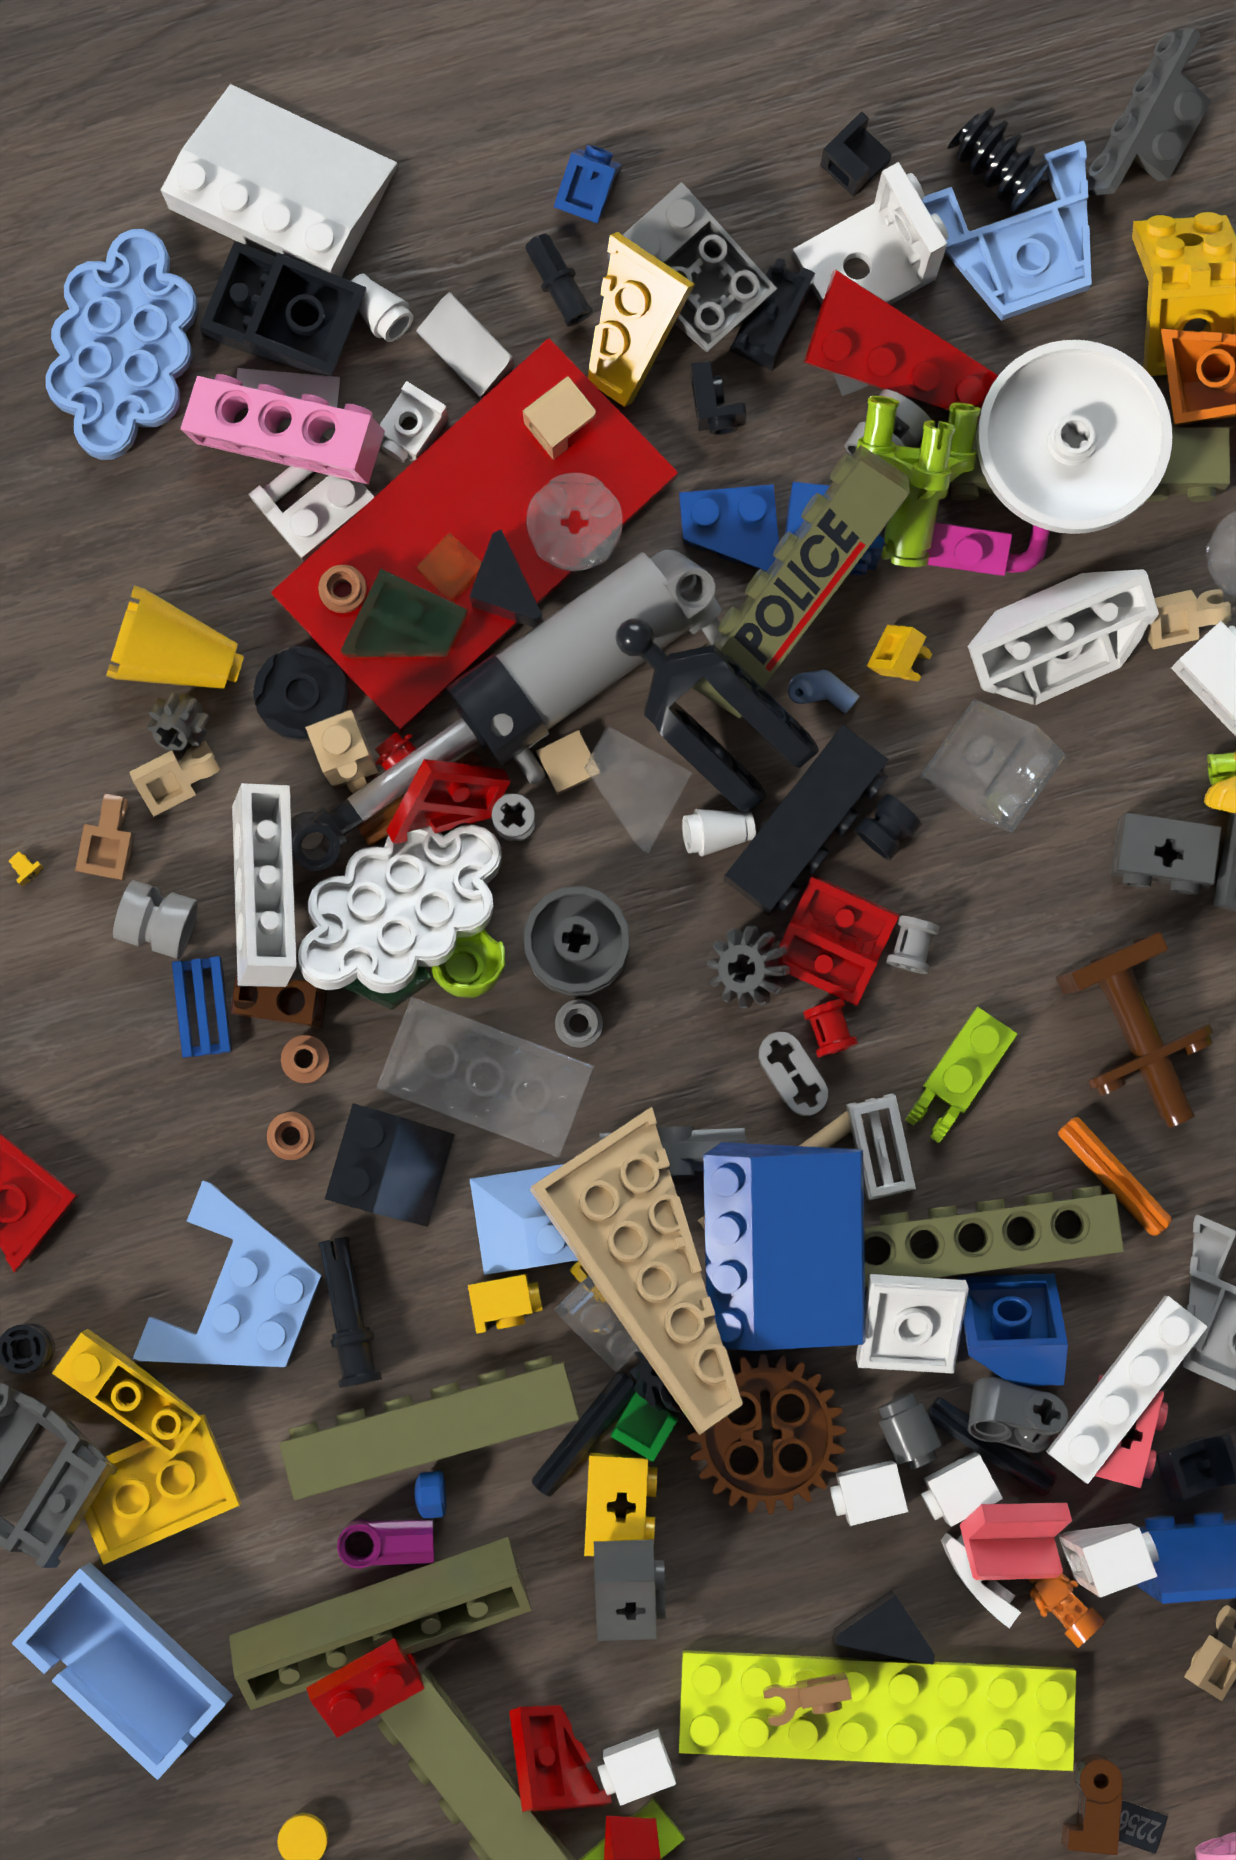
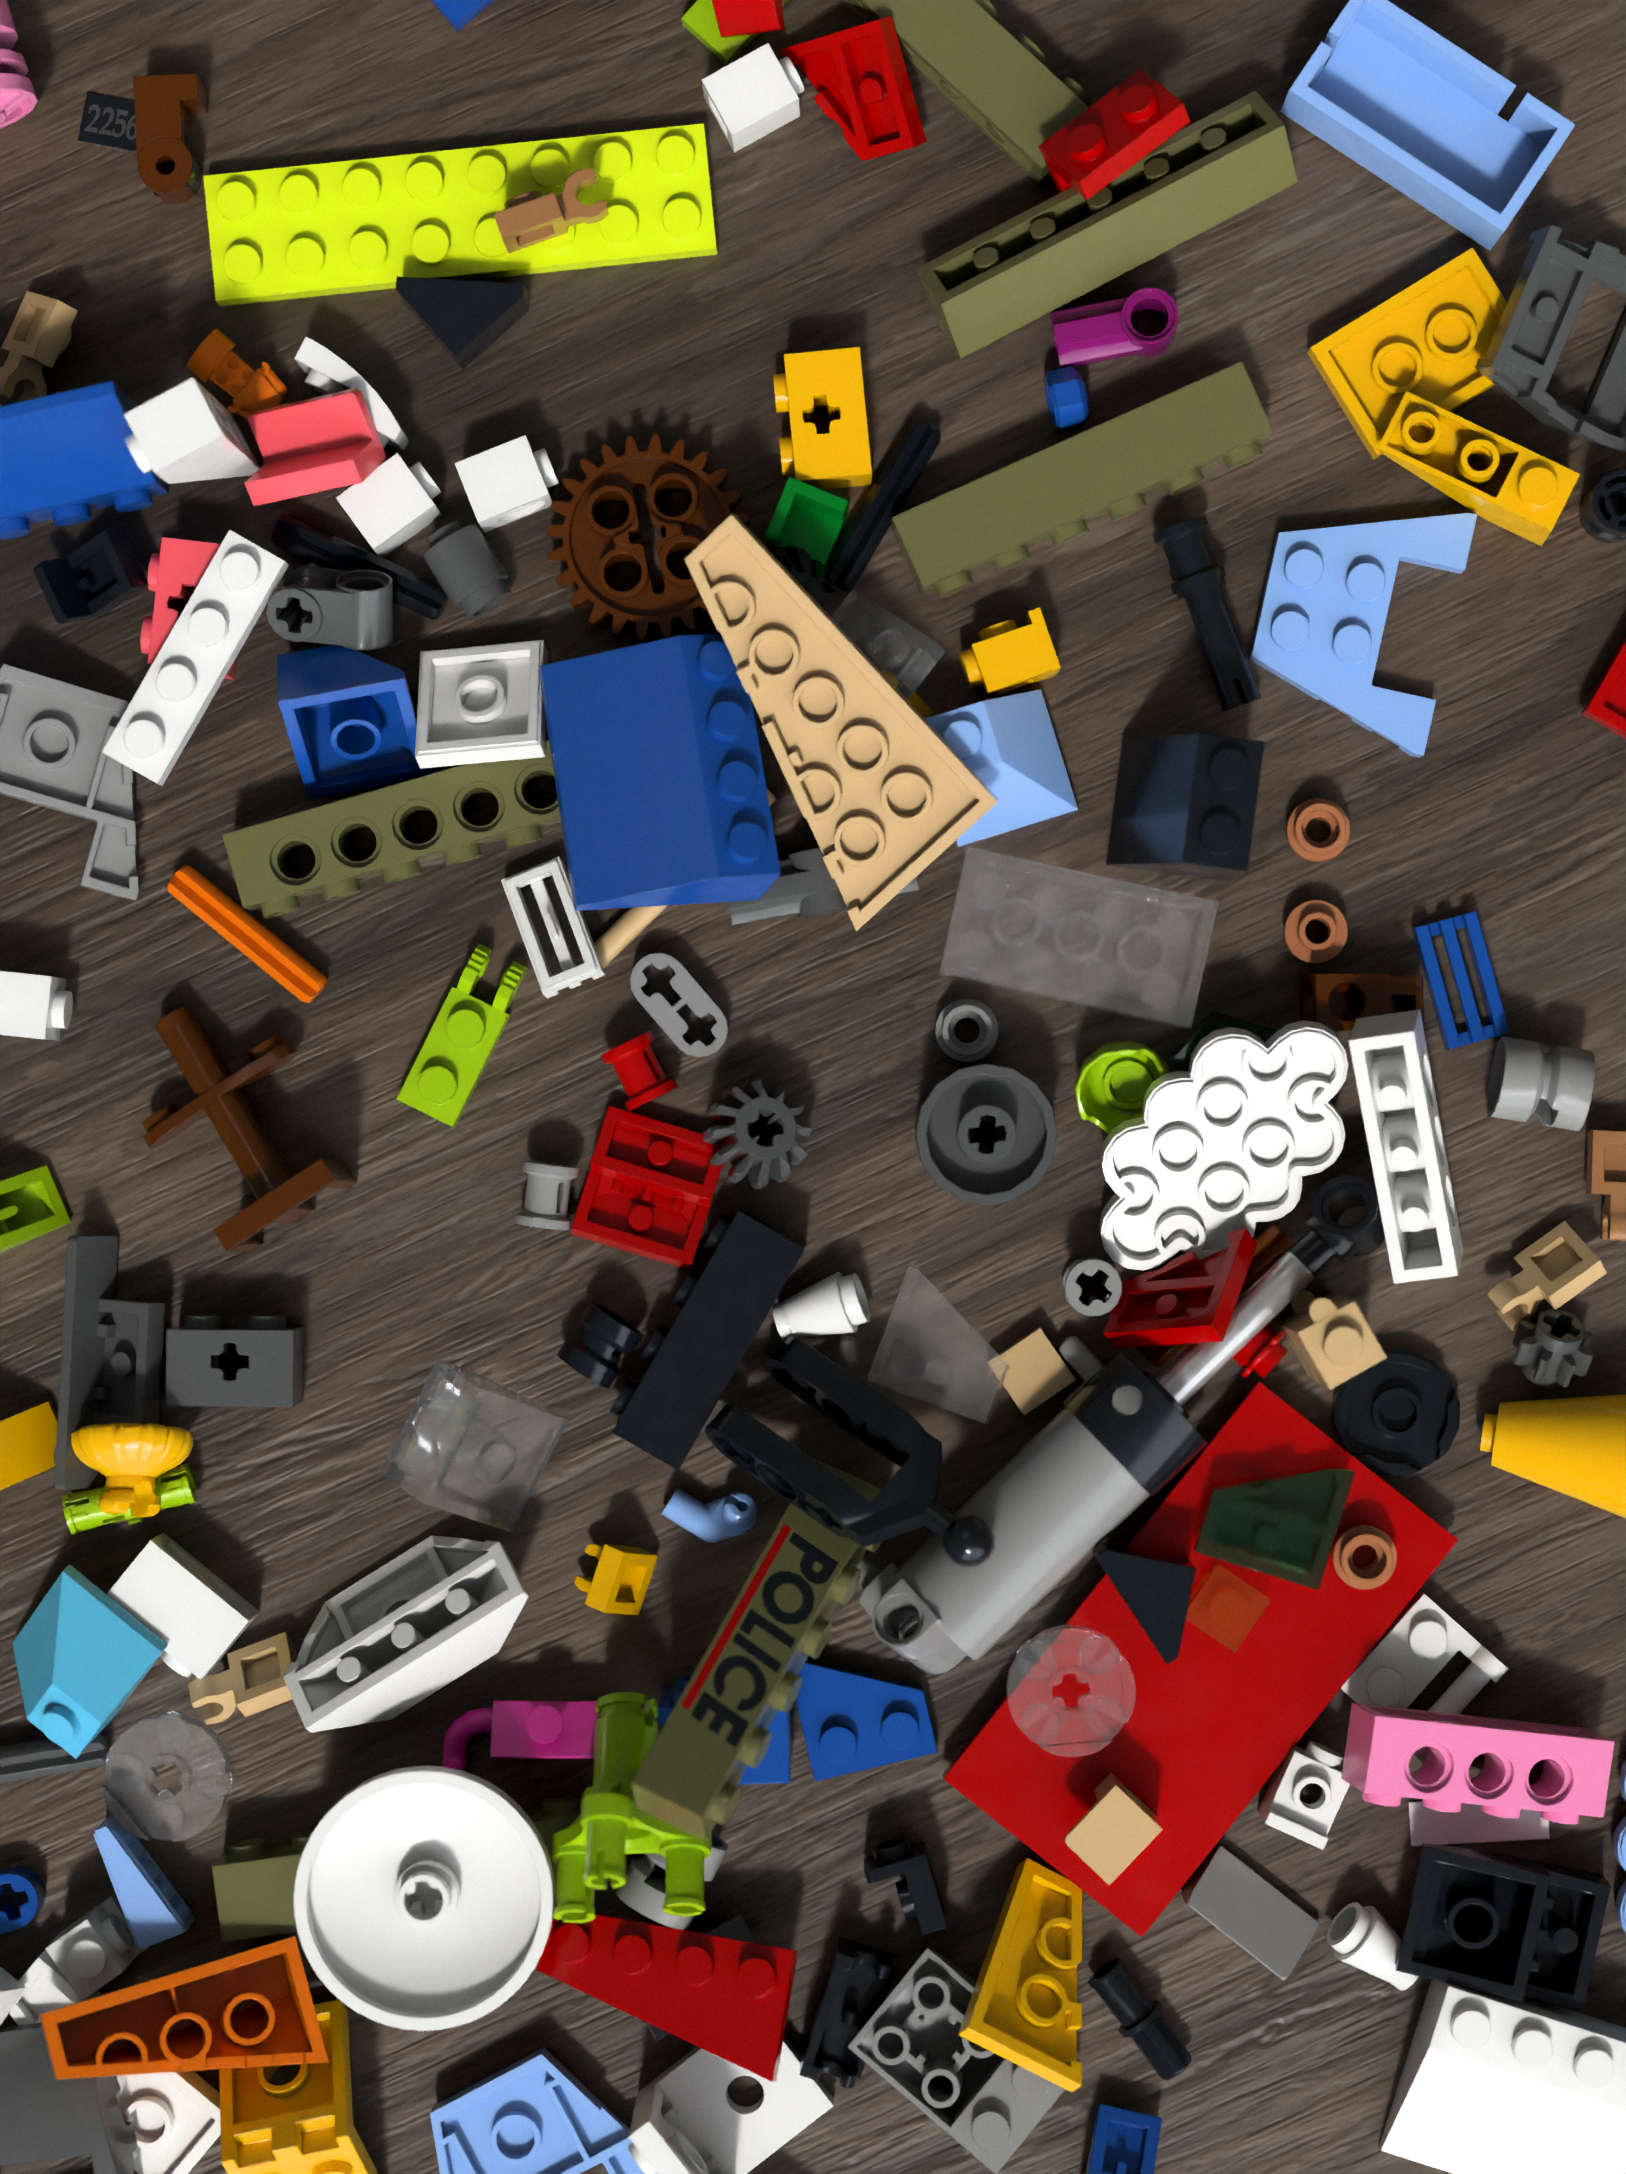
camera: 170 degrees right, 5 degrees up
(628, 1590) = (797, 311): dark grey brick -> none

